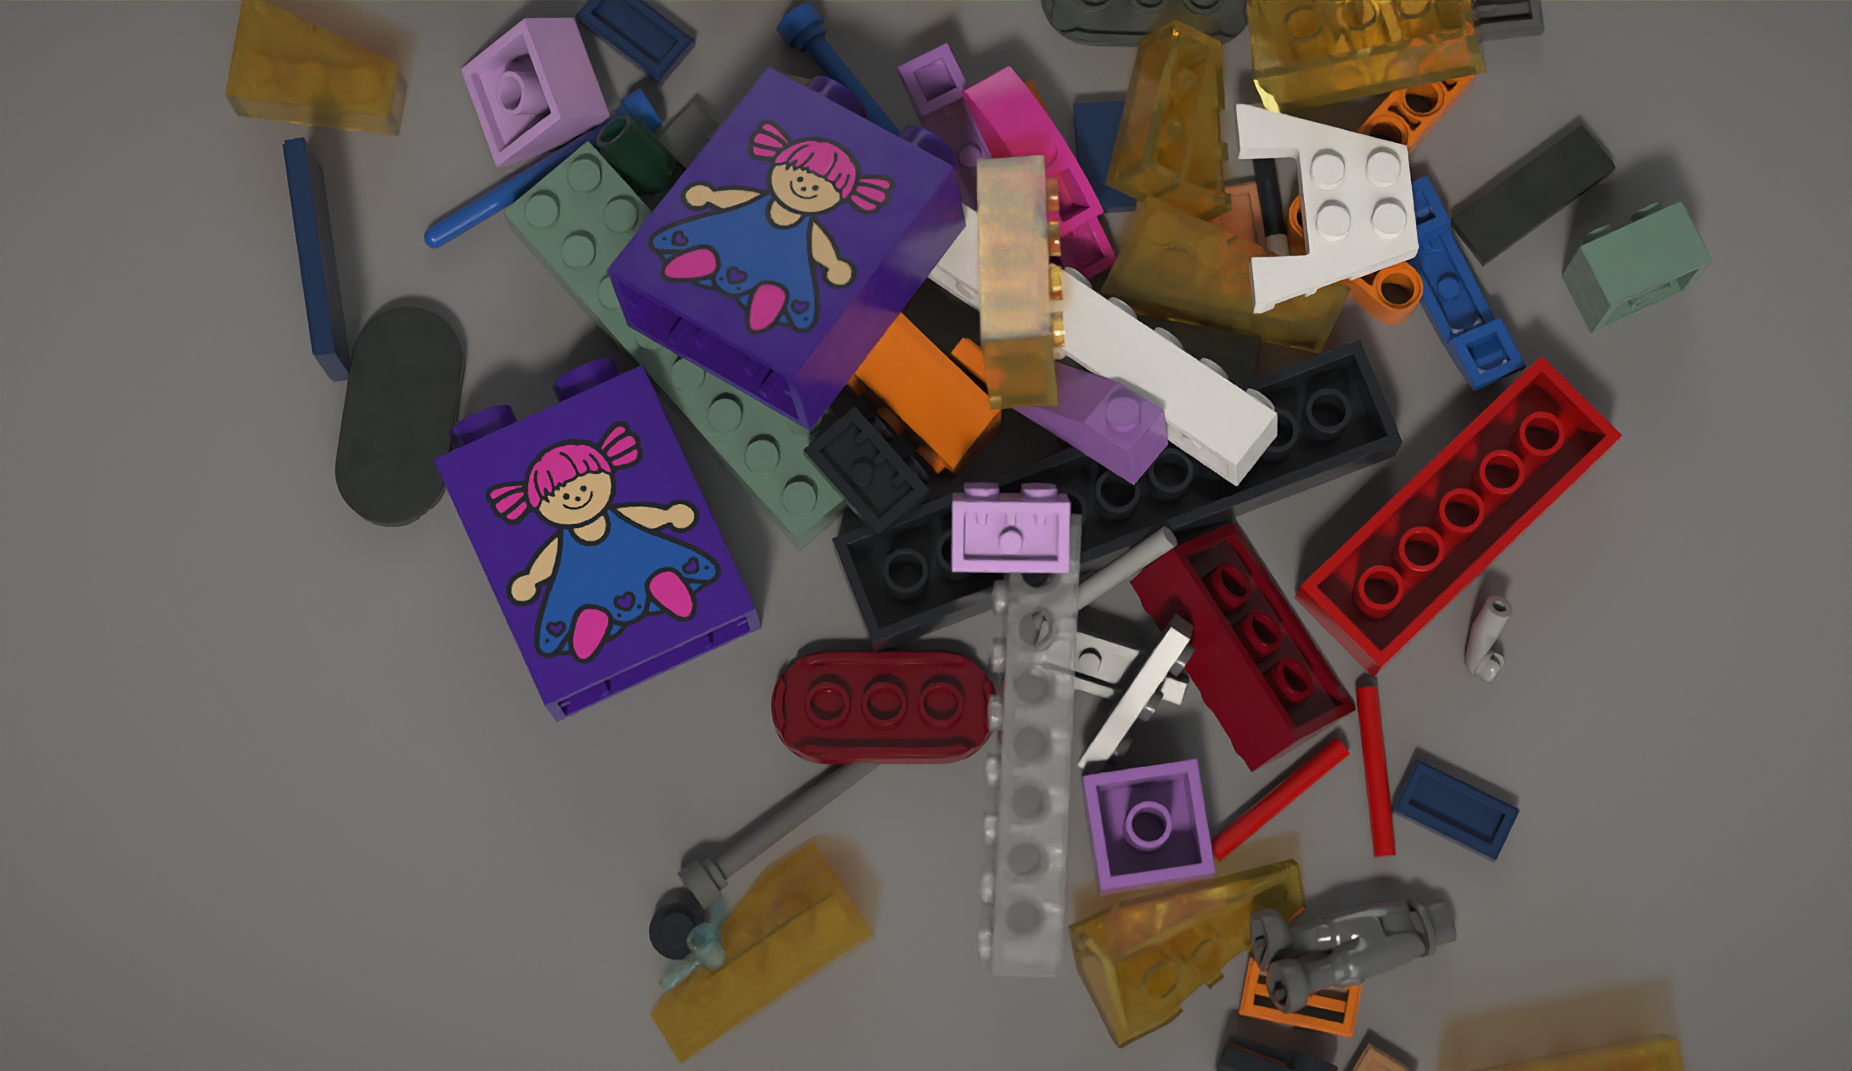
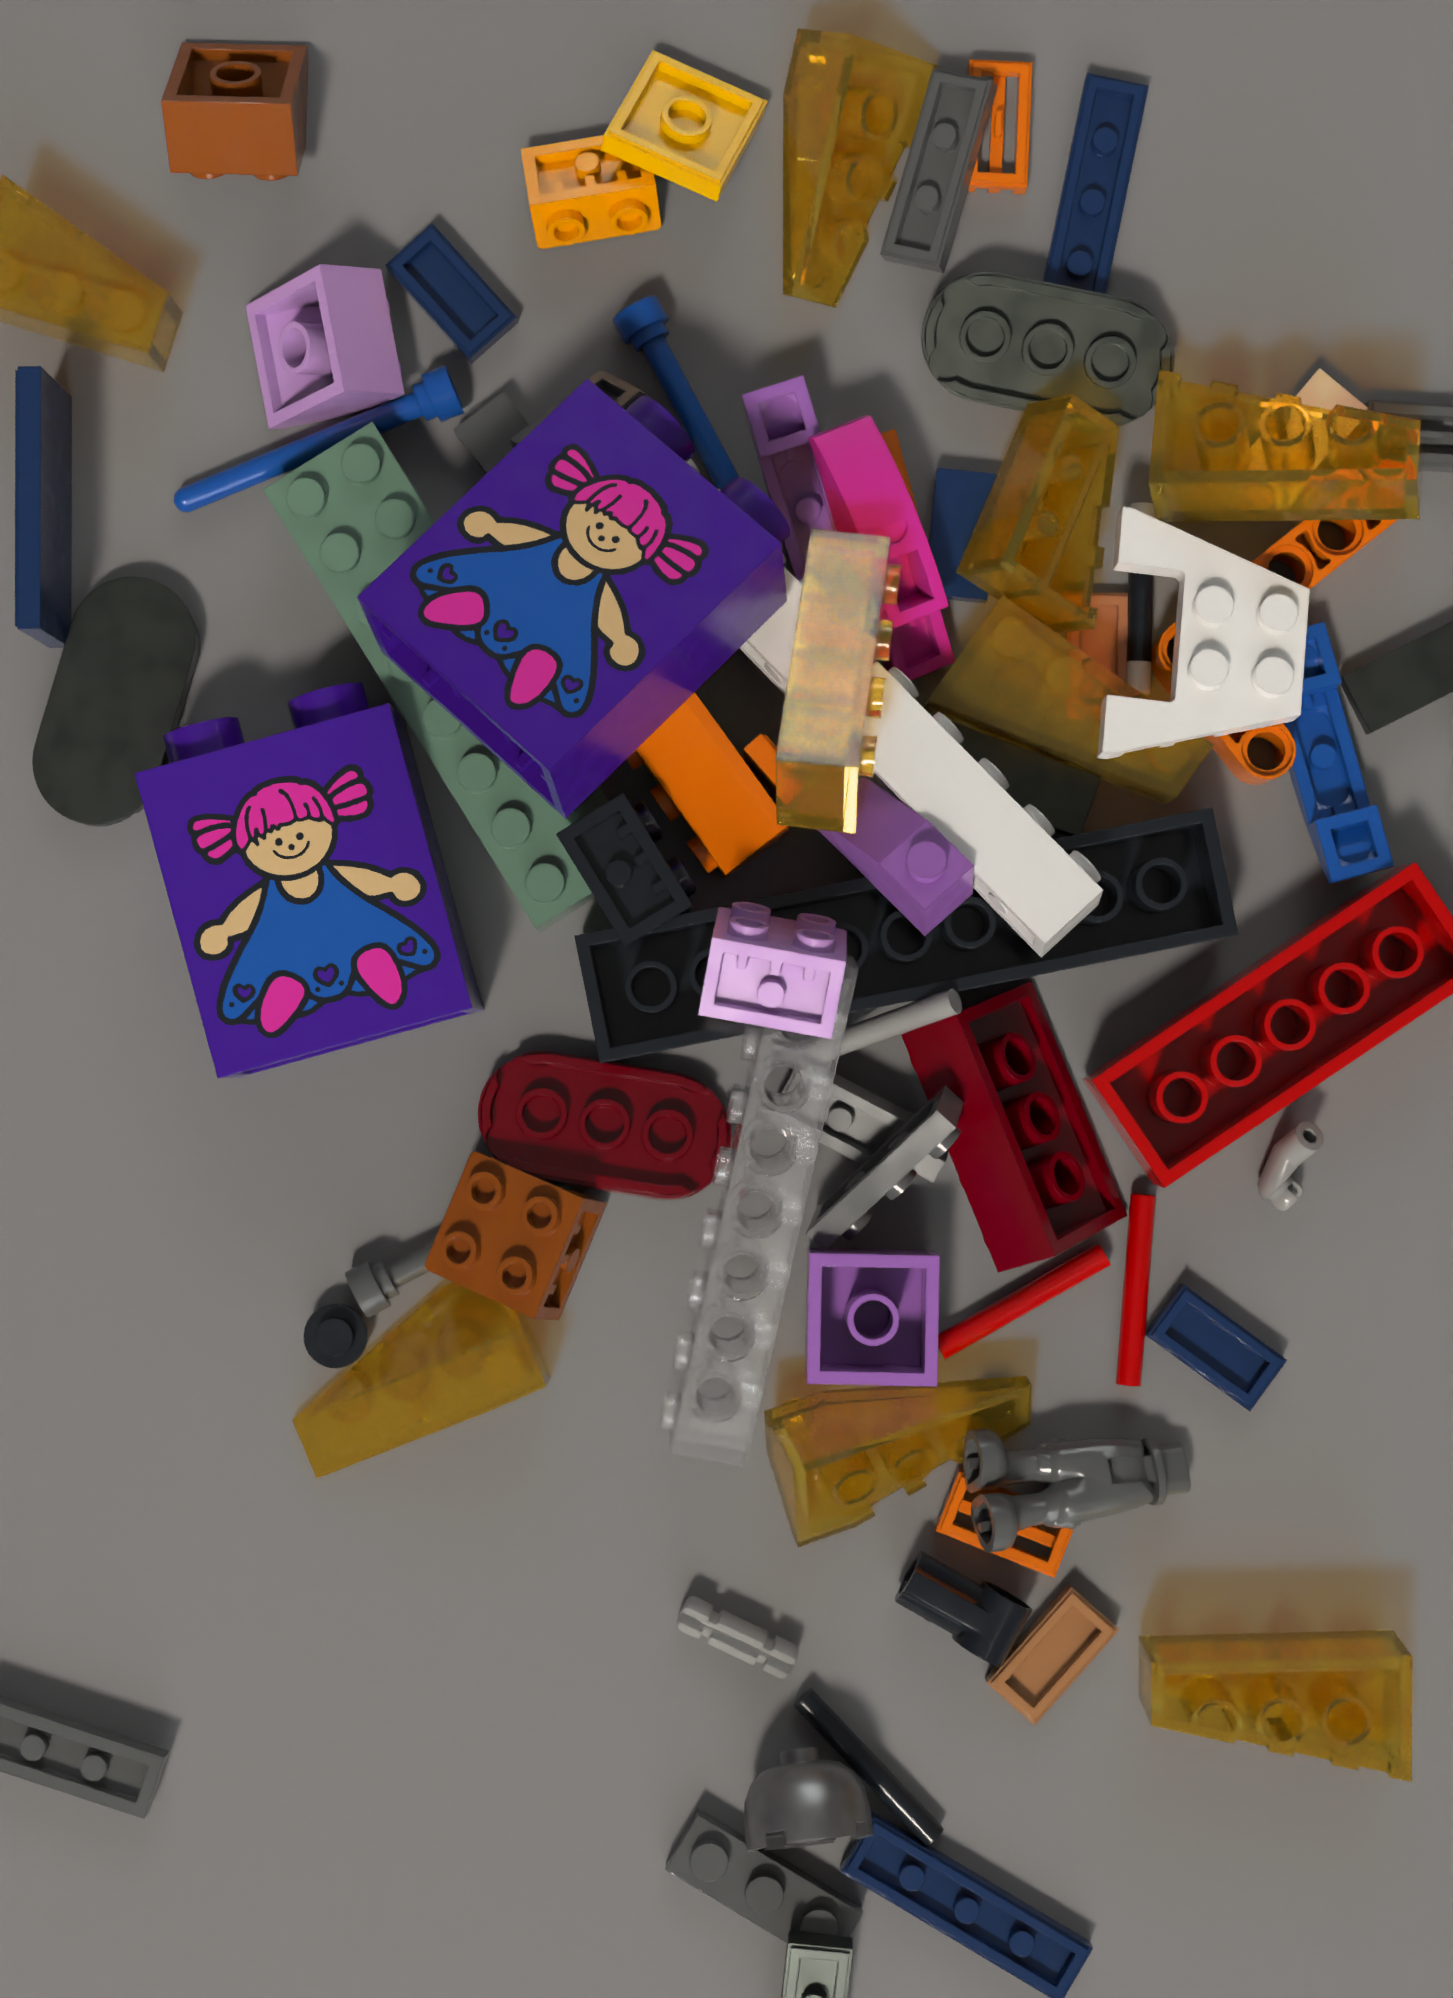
camera: 10 degrees right, 10 degrees up
(636, 154) = (427, 445): clear green brick -> none
(705, 950) = (358, 1364): clear light blue hand -> none
(823, 813) = (514, 1237): none -> dark orange bracket

